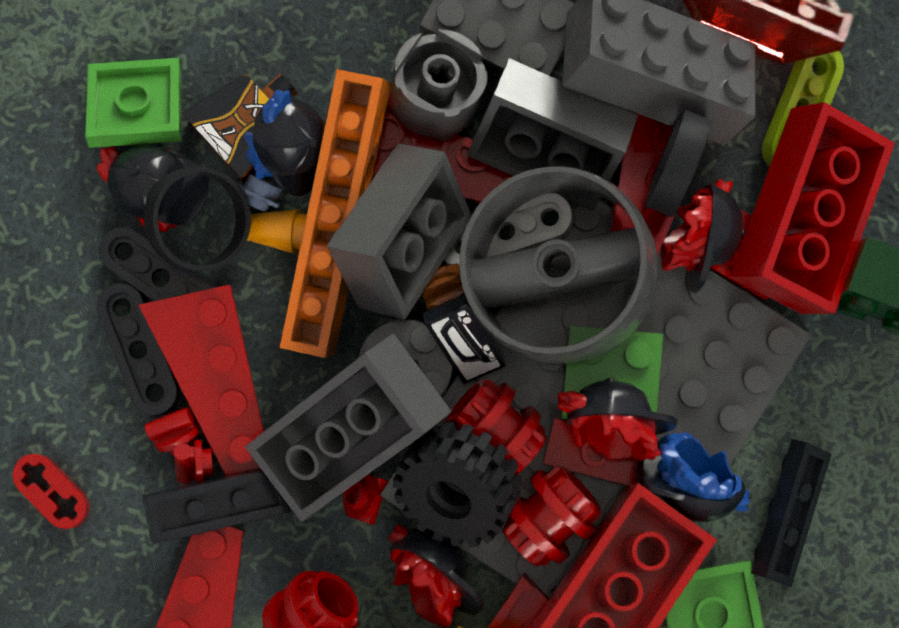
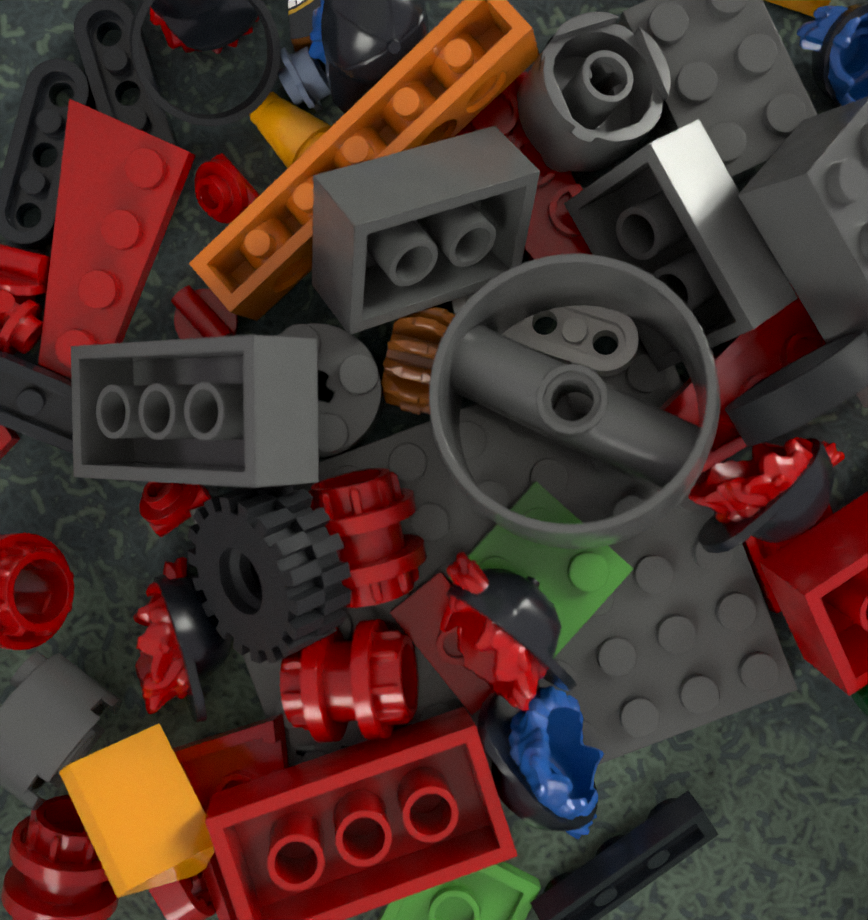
camera: 40 degrees right, 5 degrees up
(260, 293) = (222, 189): none -> red plate
(303, 375) = (202, 315): none -> red plate
(463, 339) = (400, 407): tile -> none

